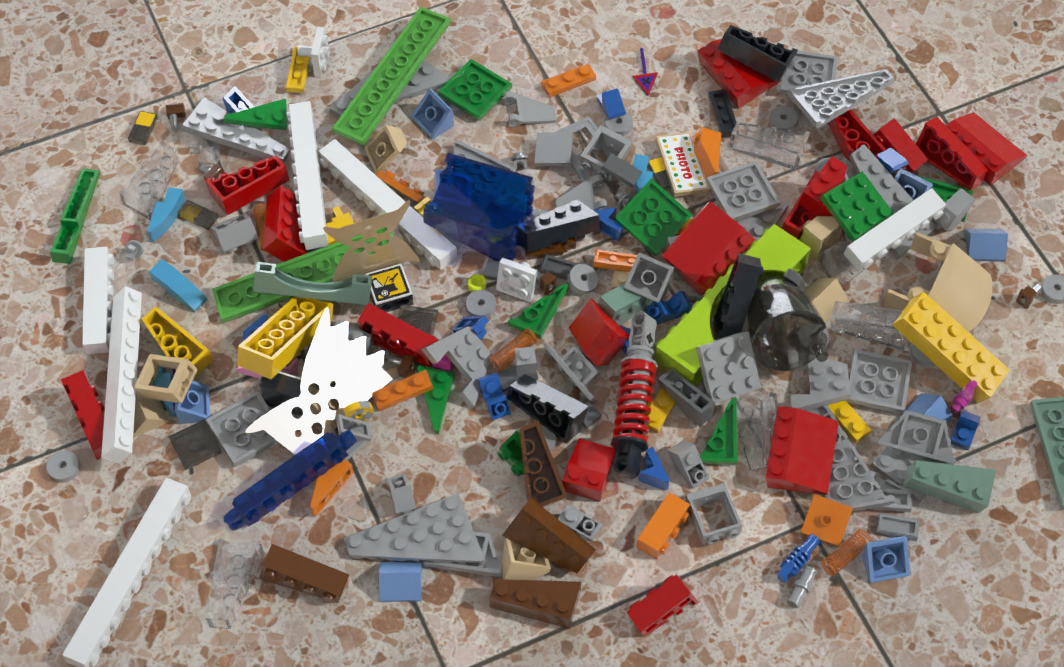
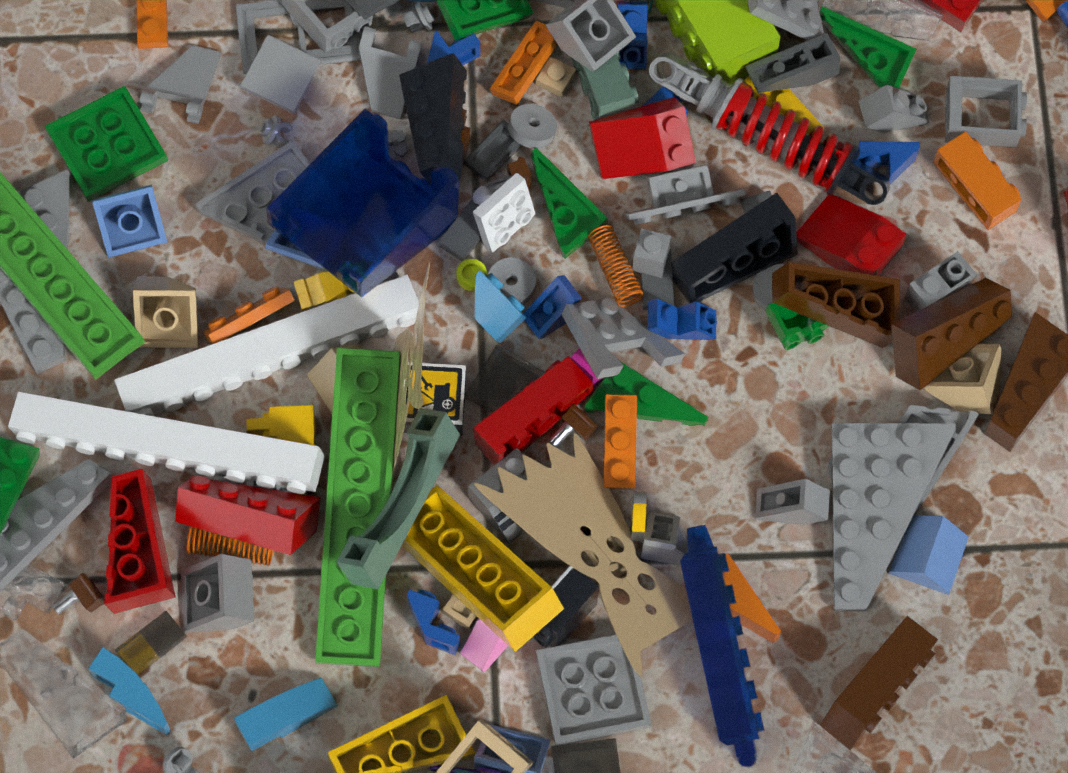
camera: 70 degrees left, 10 degrees up
(456, 297) = (493, 308): none -> dark azure slope

